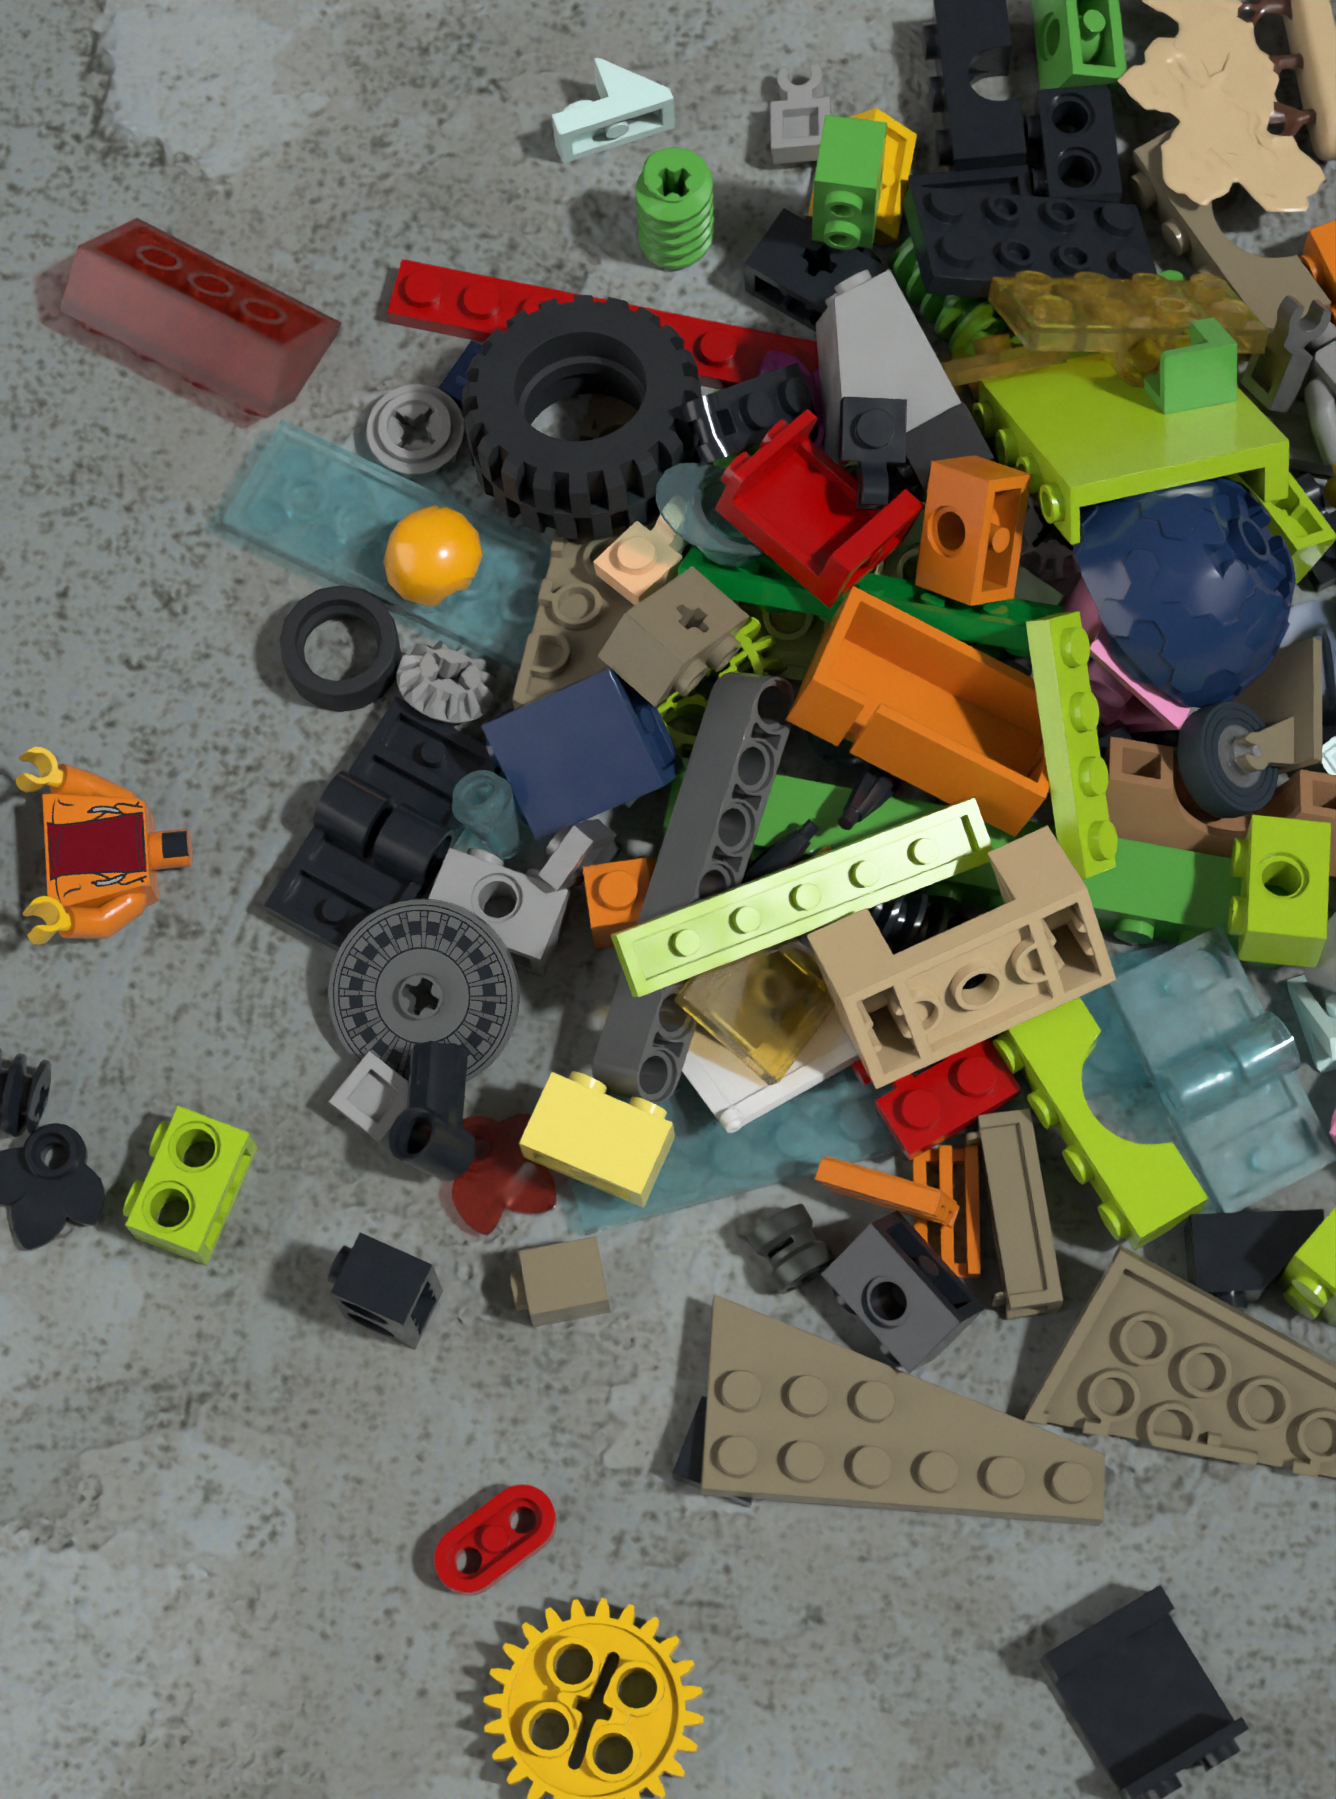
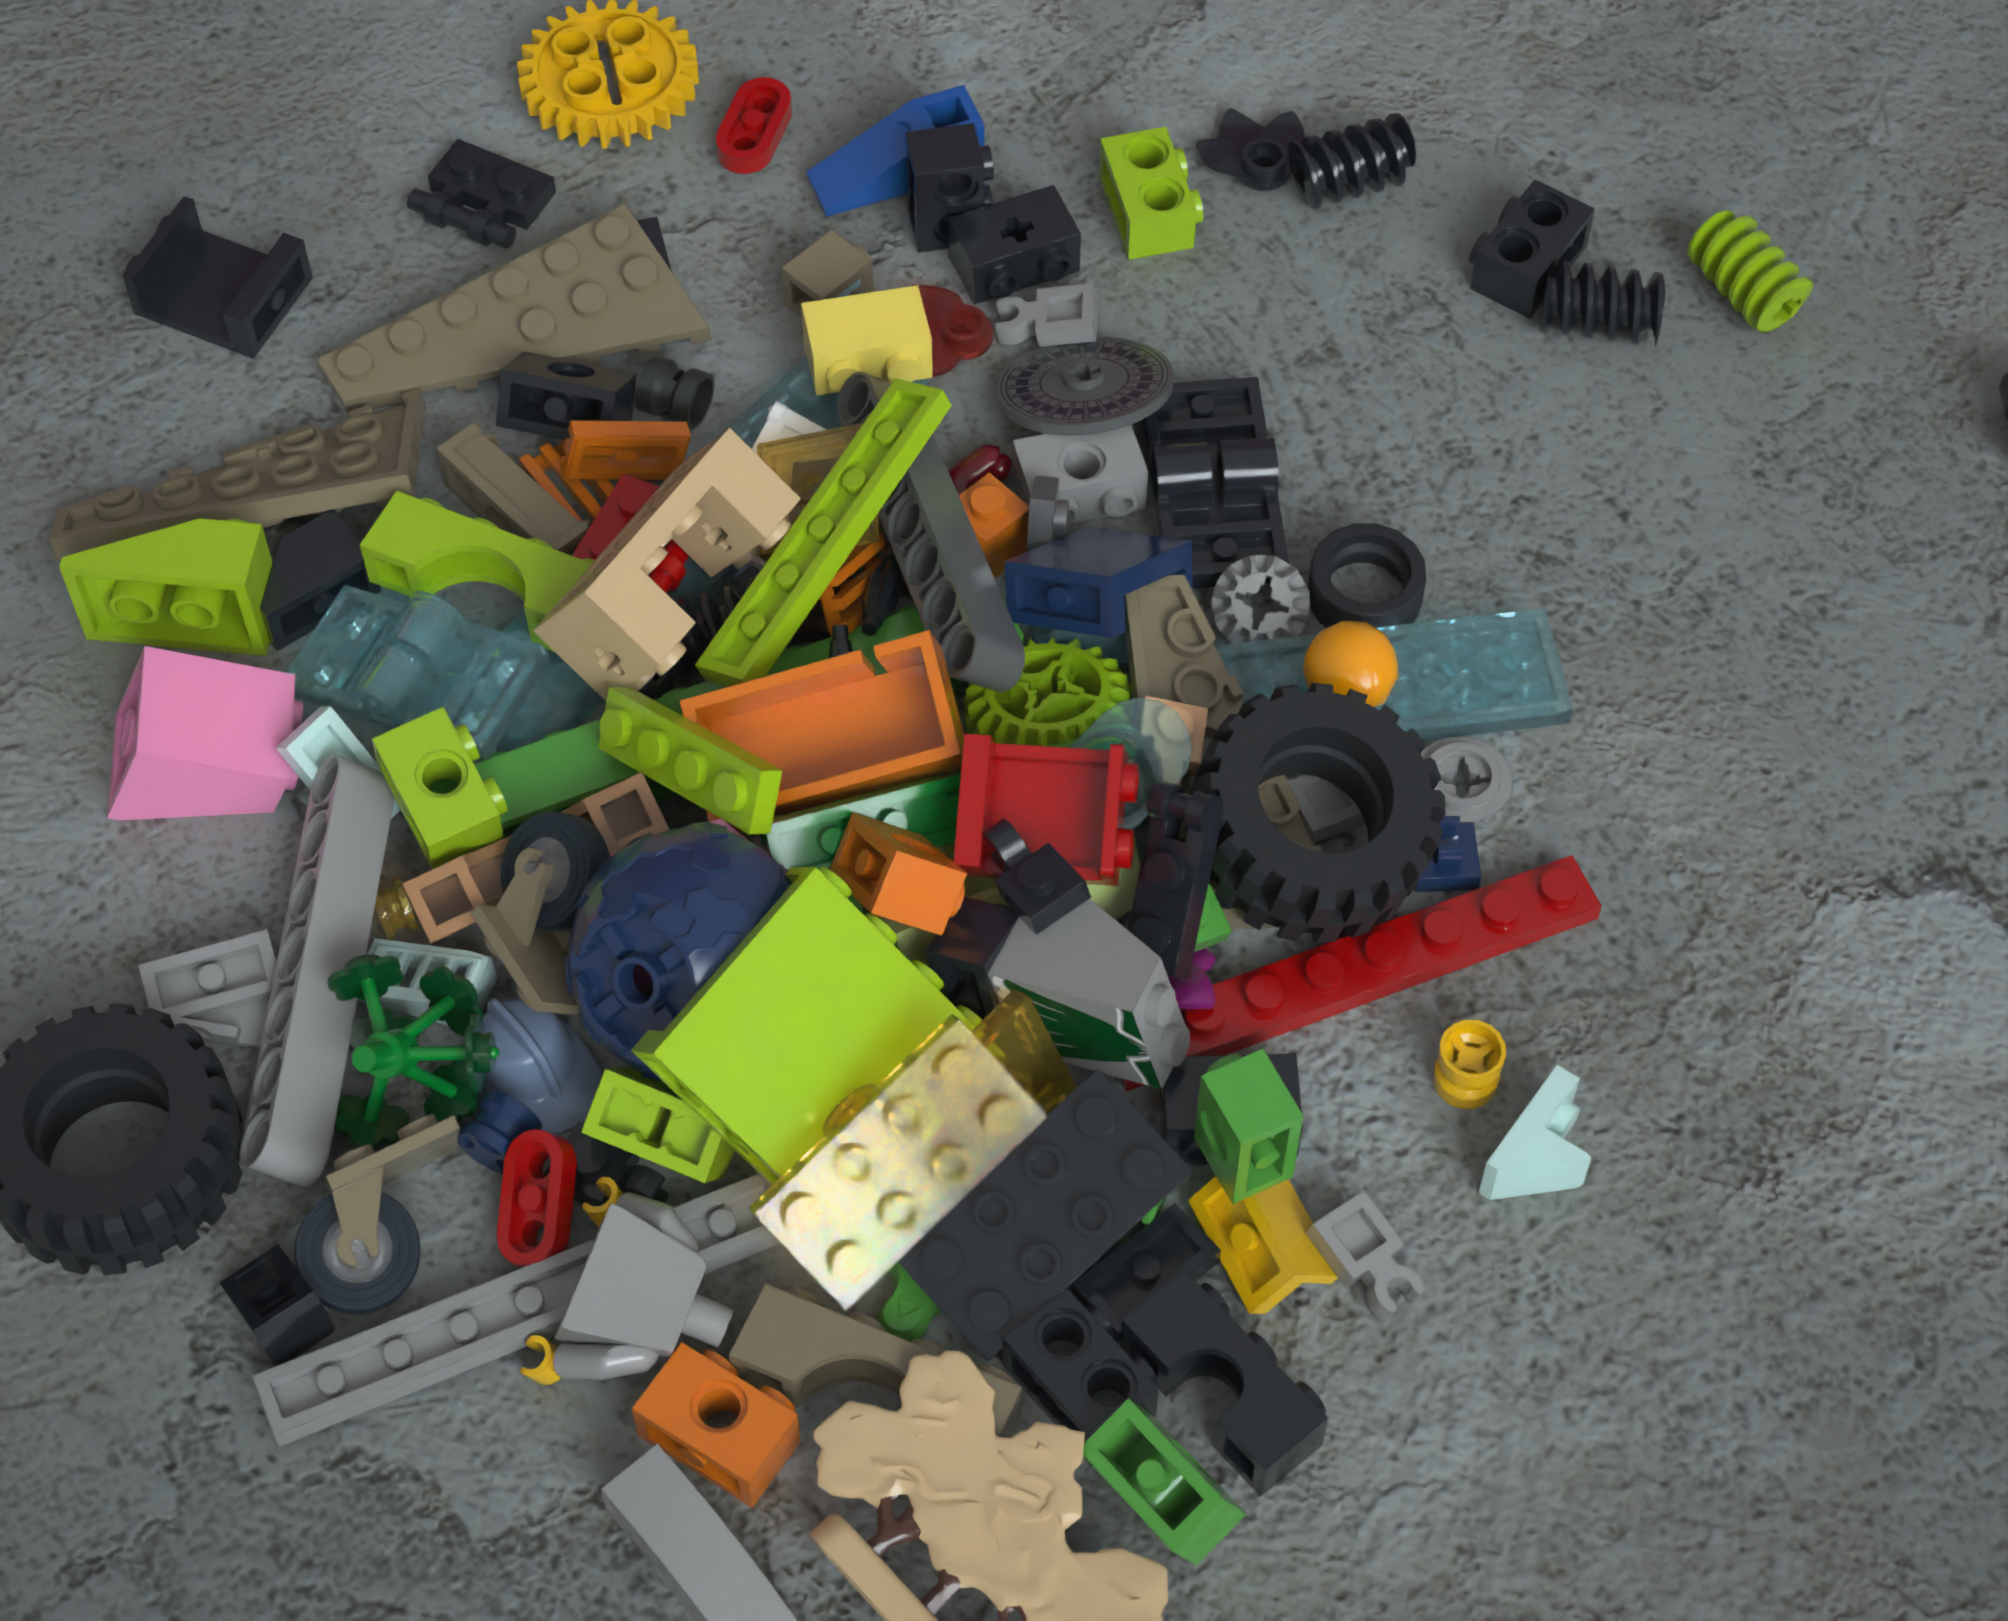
camera: 140 degrees right, 15 degrees down
(96, 852) = (1411, 338): torso -> none
(197, 316) = (1721, 756): clear red slope -> none
(325, 1218) = (1014, 244): none -> black brick
(392, 1385) = (875, 161): none -> blue slope
(431, 1127) = (997, 296): black piece -> none
(488, 811) = (1146, 509): clear light blue cone -> none
(579, 988) = (978, 464): none -> dark red arm
(610, 184) = (1469, 1048): none -> yellow wheel
(675, 208) = (1396, 1062): bright green piece -> none
(675, 637) = (1099, 614): dark tan brick -> none
(798, 1652) = (486, 182): none -> black plate
(1196, 373) = (793, 1111): bright green panel -> none
(1284, 366) = (736, 1261): flat silver plate -> none

